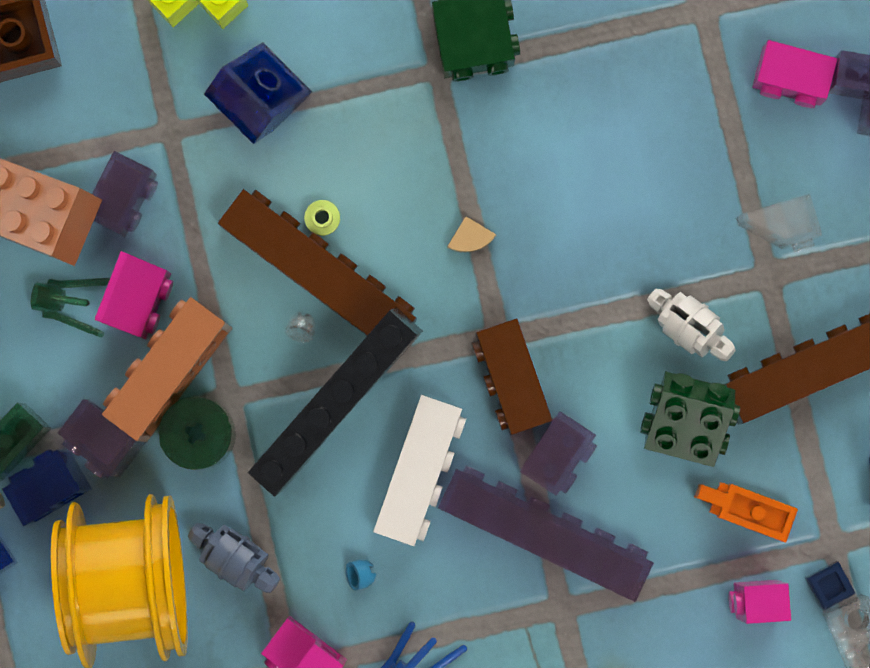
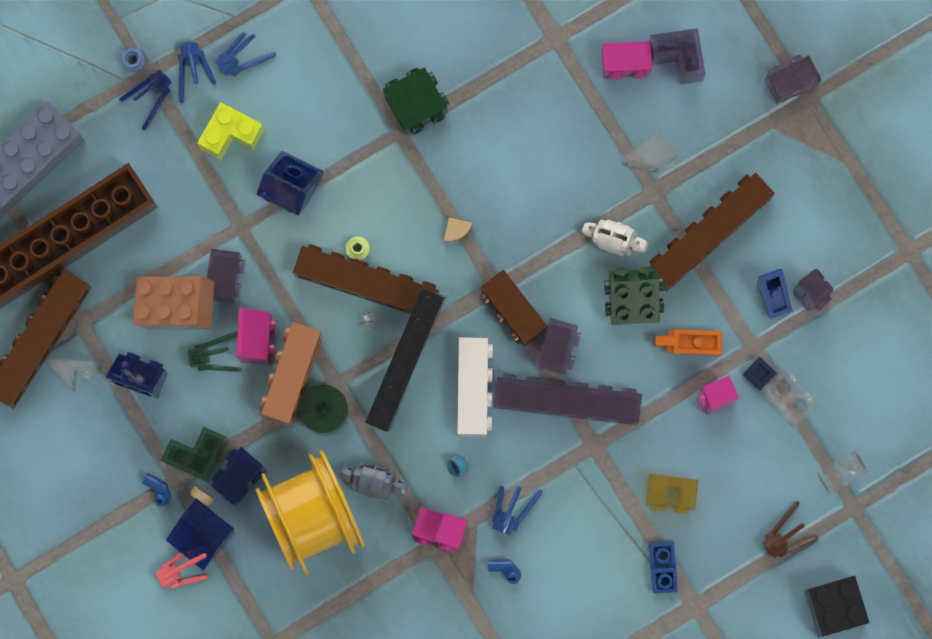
camera: 20 degrees left, 5 degrees down
(99, 441) = (263, 433): clear purple brick -> none

